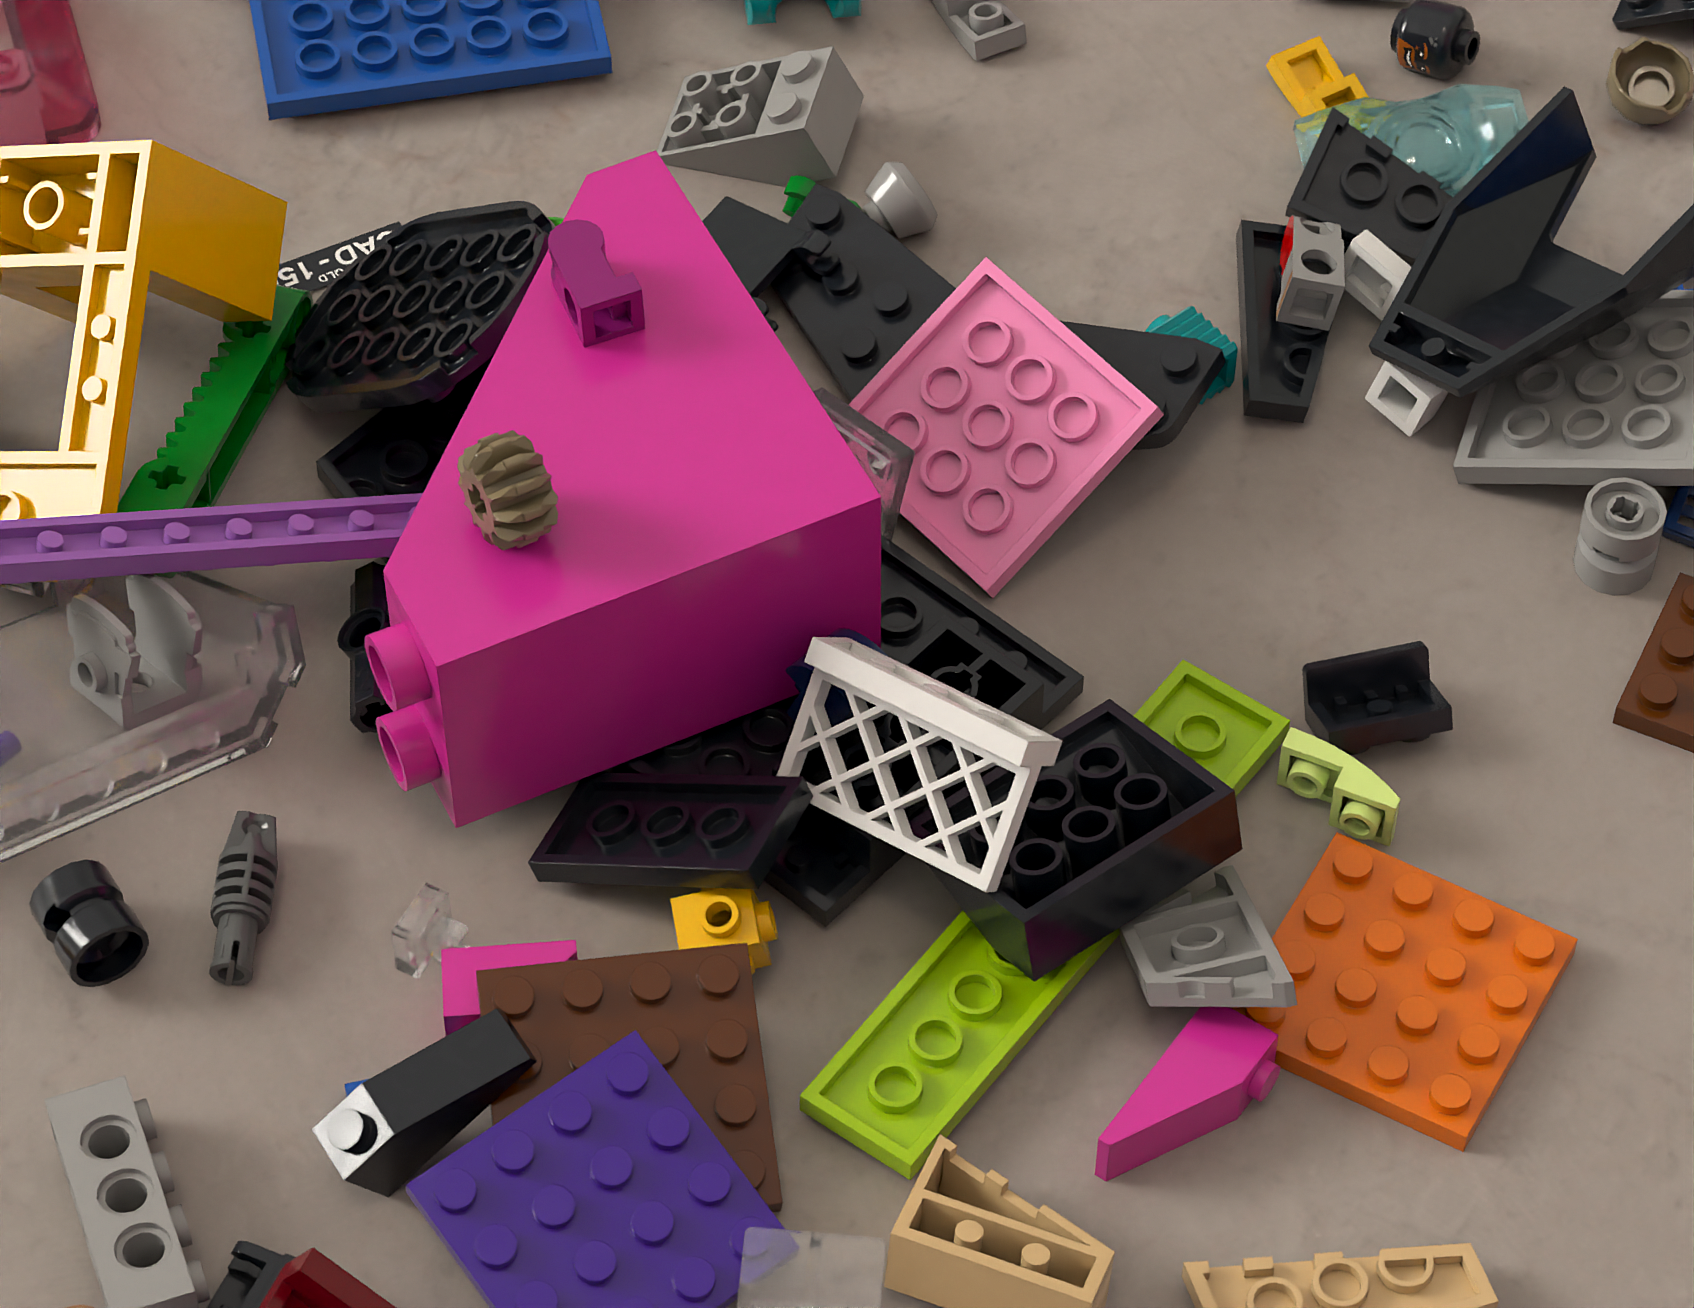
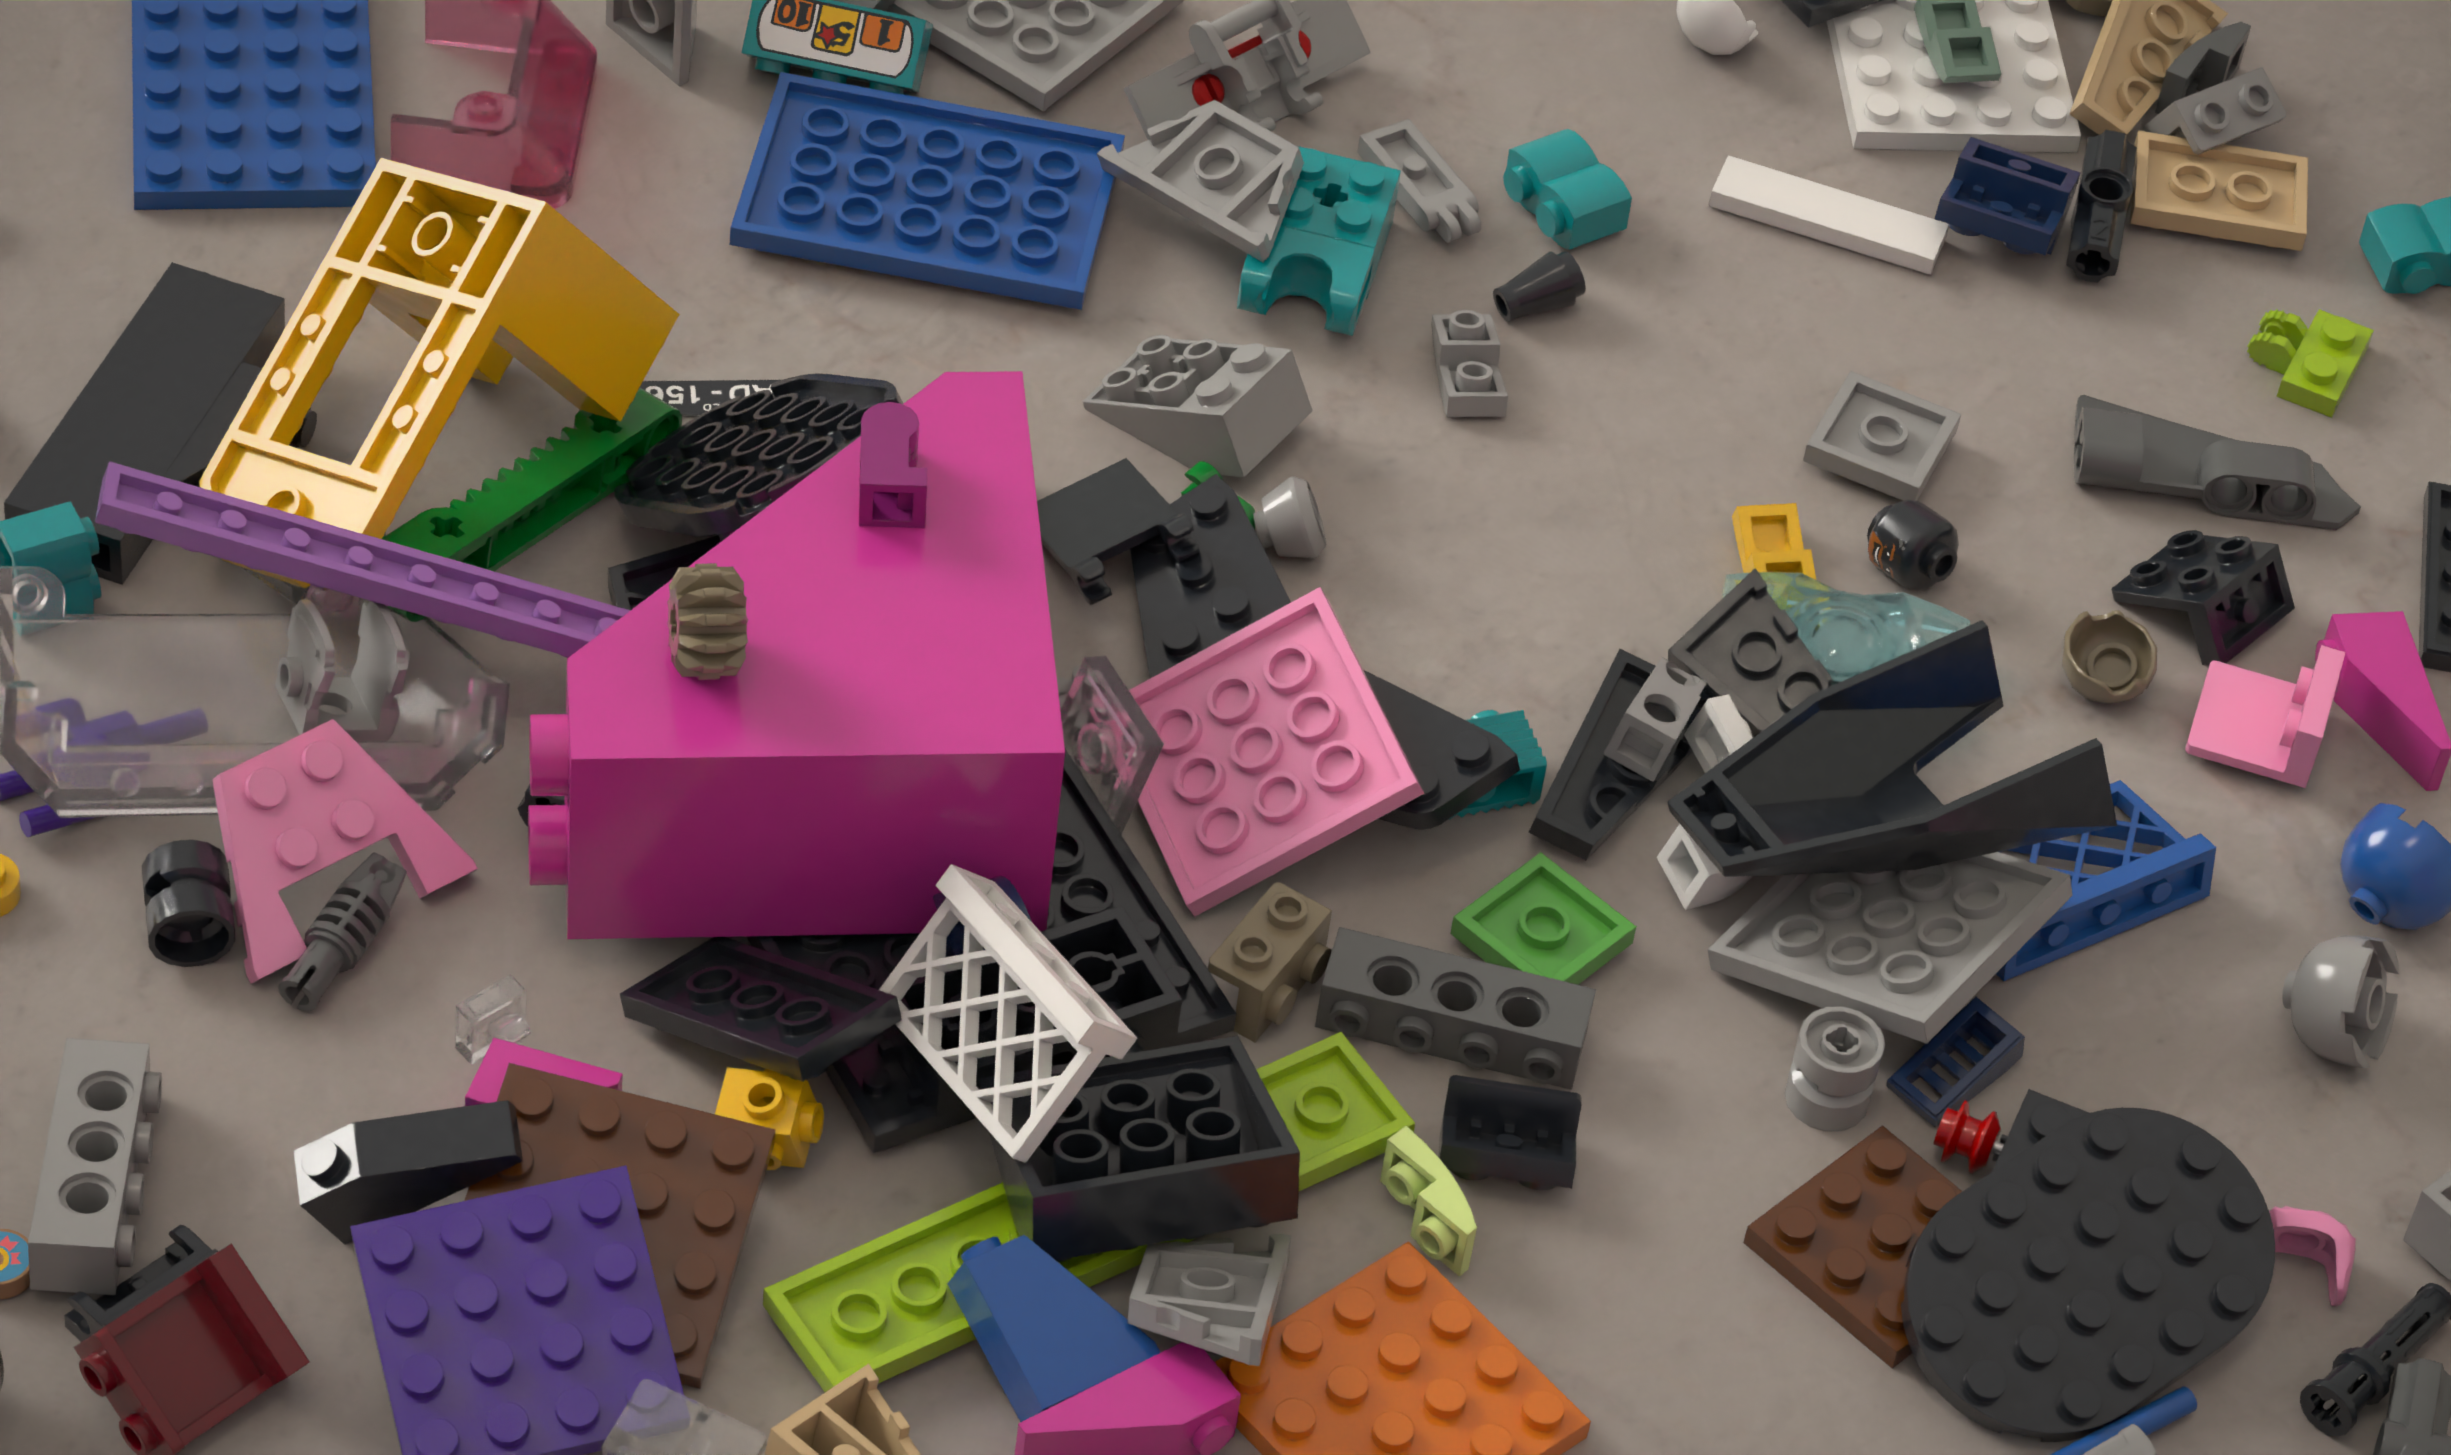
camera: 15 degrees right, 5 degrees down
(162, 798) = (306, 811): none -> bright pink wing
(1072, 1039) = (1042, 1325): none -> blue slope
(1087, 610) = (1273, 956): none -> dark tan bracket
(1268, 600) = (1455, 1008): none -> dark grey brick
(1303, 500) = (1543, 924): none -> bright green plate

